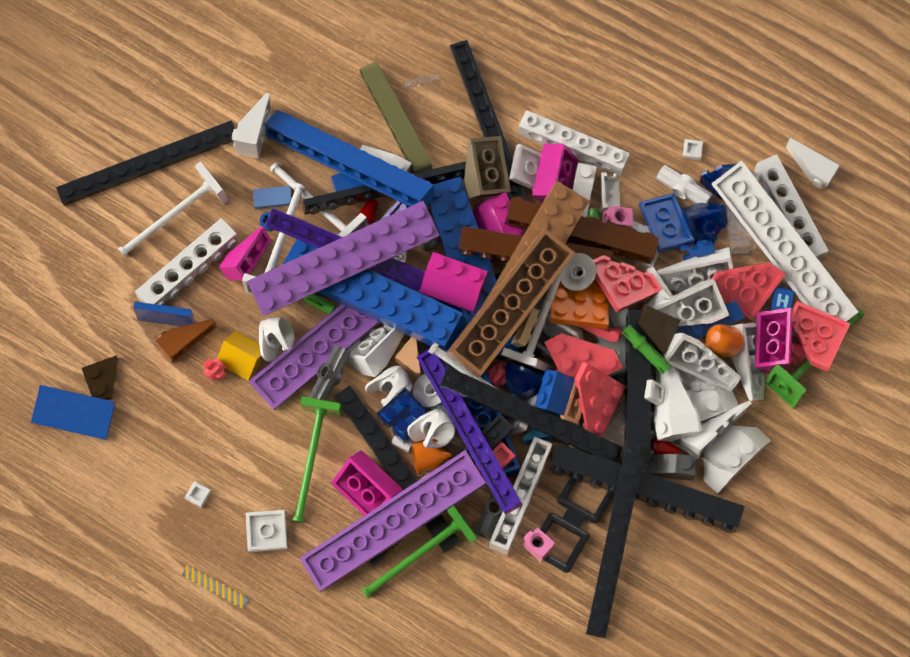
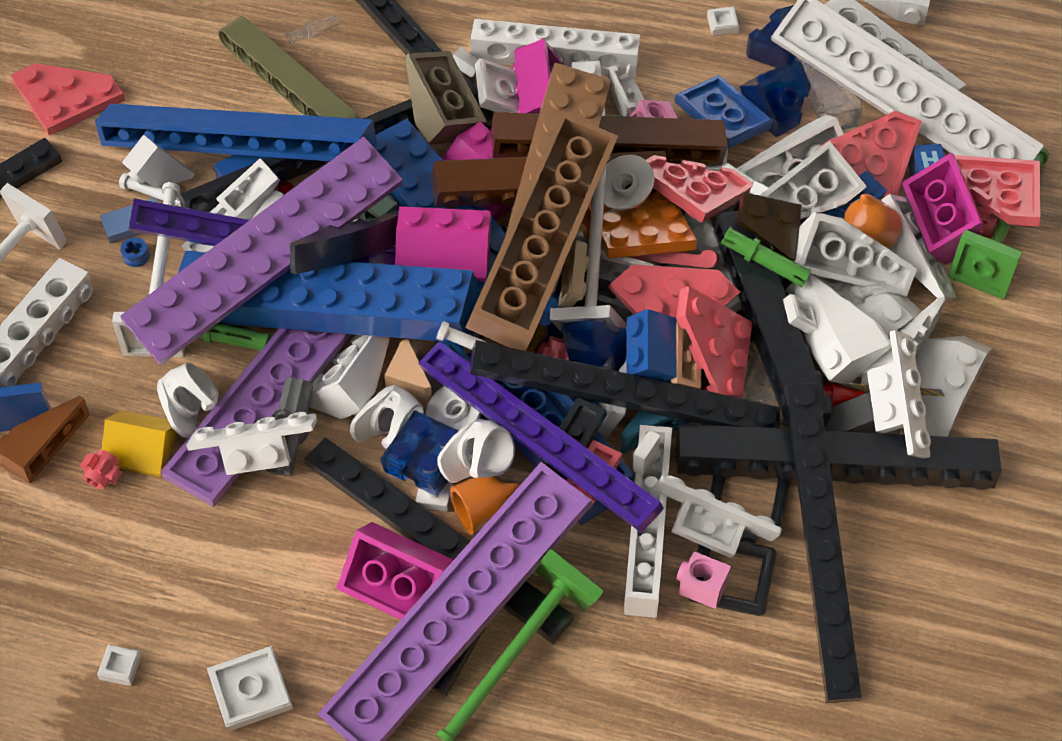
camera: 15 degrees left, 15 degrees down
(245, 255) = (112, 295): dark pink slope -> none
(249, 85) = (64, 94): none -> coral plate
(251, 129) = (76, 135): white slope -> none
(295, 165) = (154, 165): none -> white slope
(306, 382) = (255, 444): none -> white bracket
(320, 408) = (288, 476): bright green tile -> none
(339, 213) = (242, 197): none -> white slope
(390, 270) = (342, 245): none -> black slope
(488, 519) = (610, 568): dark grey piece -> none
(512, 137) = (465, 61): none -> white tile
(530, 458) = (646, 452): none -> white tile
(554, 511) = (712, 521): none -> white bracket
(683, 185) = (727, 62): white piece -> none
(692, 465) = (898, 396): none -> white bracket
(702, 248) = (788, 126): blue plate -> none

